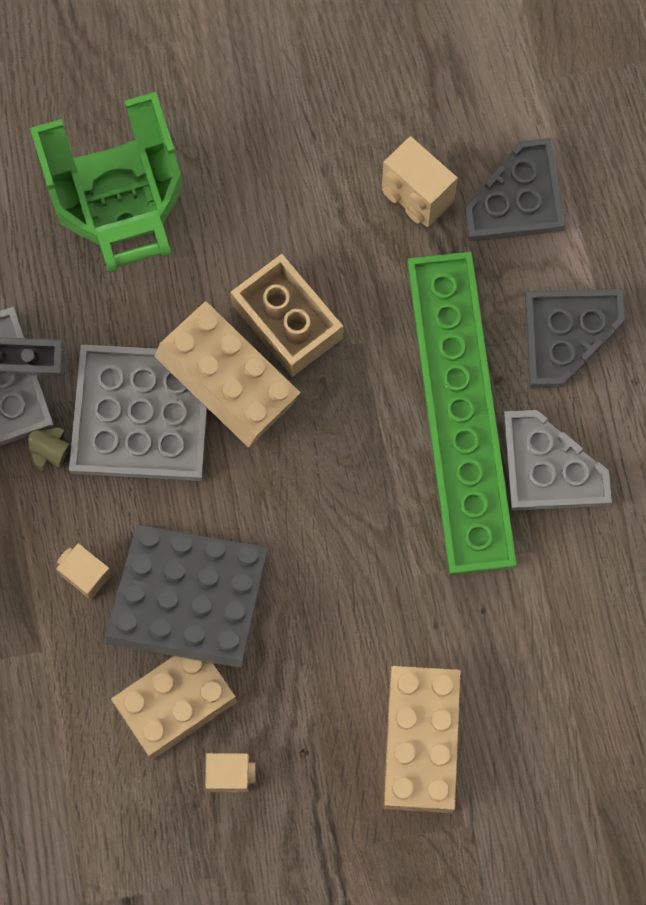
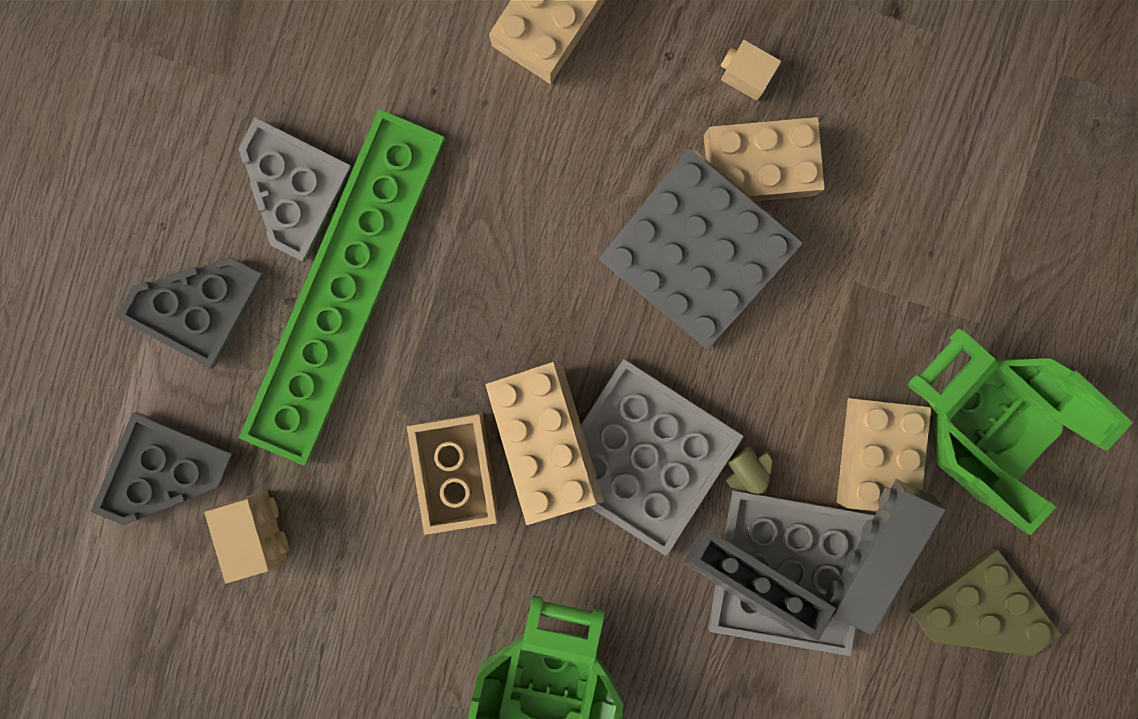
camera: 145 degrees left, 15 degrees up
(83, 570) = (781, 332): tan brick -> none

